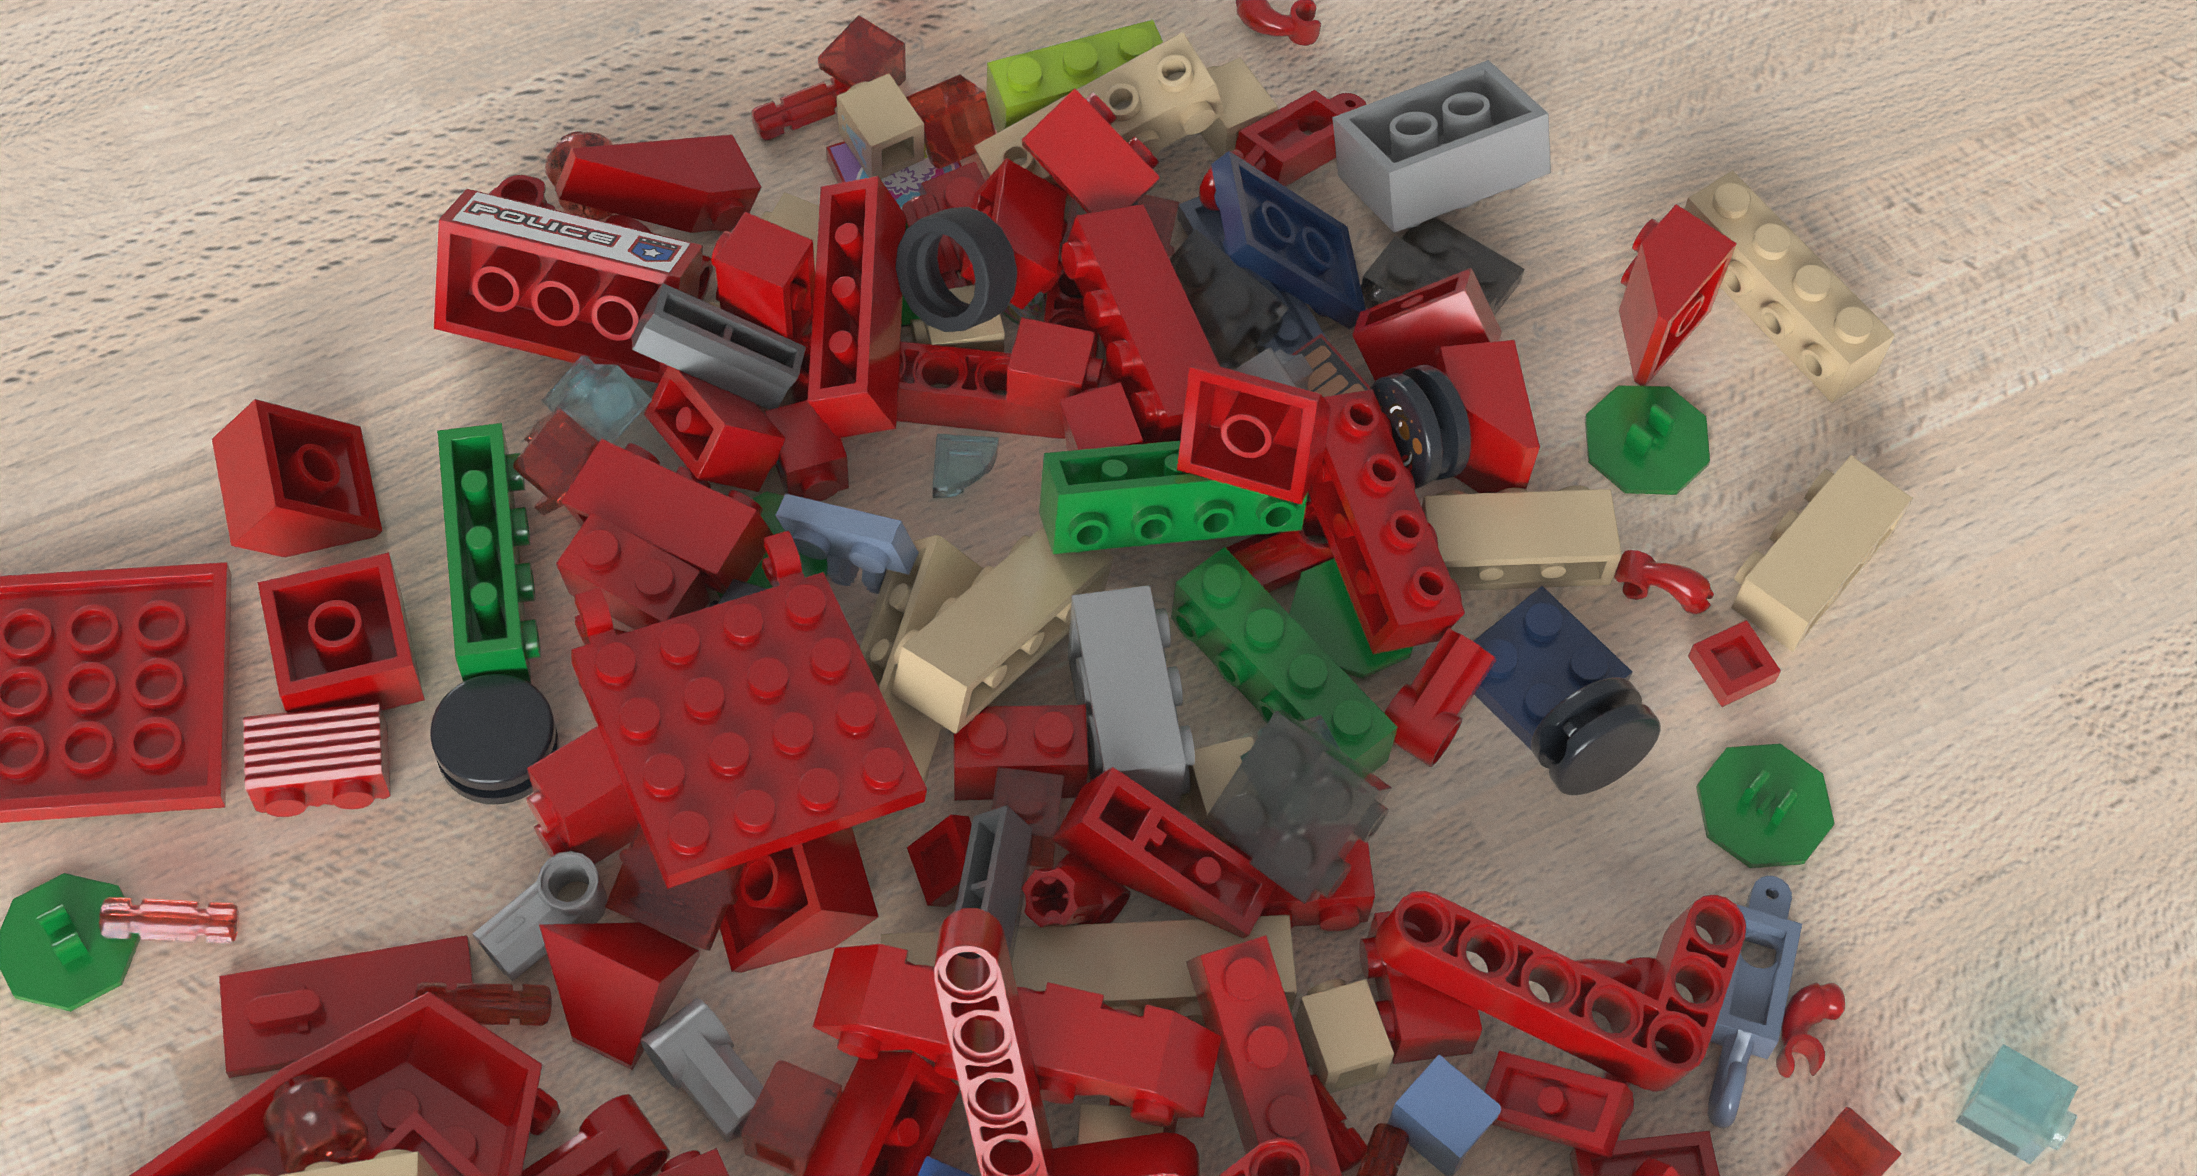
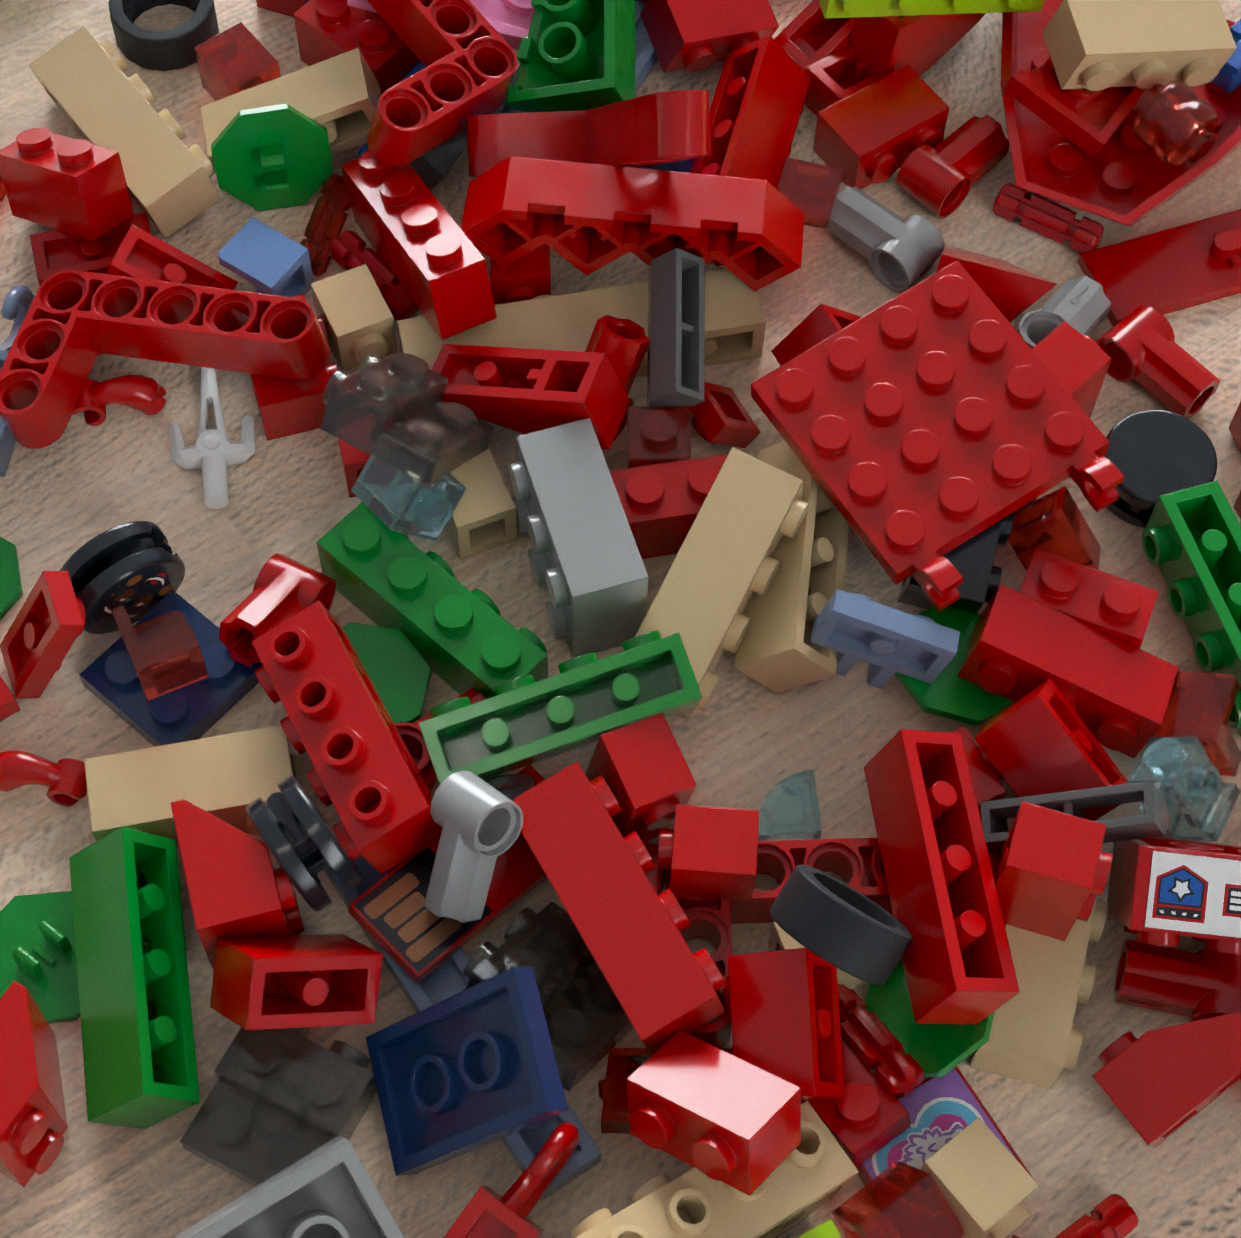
camera: 175 degrees right, 0 degrees up
(452, 874) = (1146, 351): none -> red piece
(495, 1002) = (1087, 256): clear red axle -> none
(1252, 432) = (480, 714): red slope -> none
(1505, 904) = (212, 448): none -> white piece
(1553, 649) = (162, 652): none -> clear red panel
(1569, 373) = (133, 980): none -> green brick
(1668, 682) = (42, 634): none -> red plate

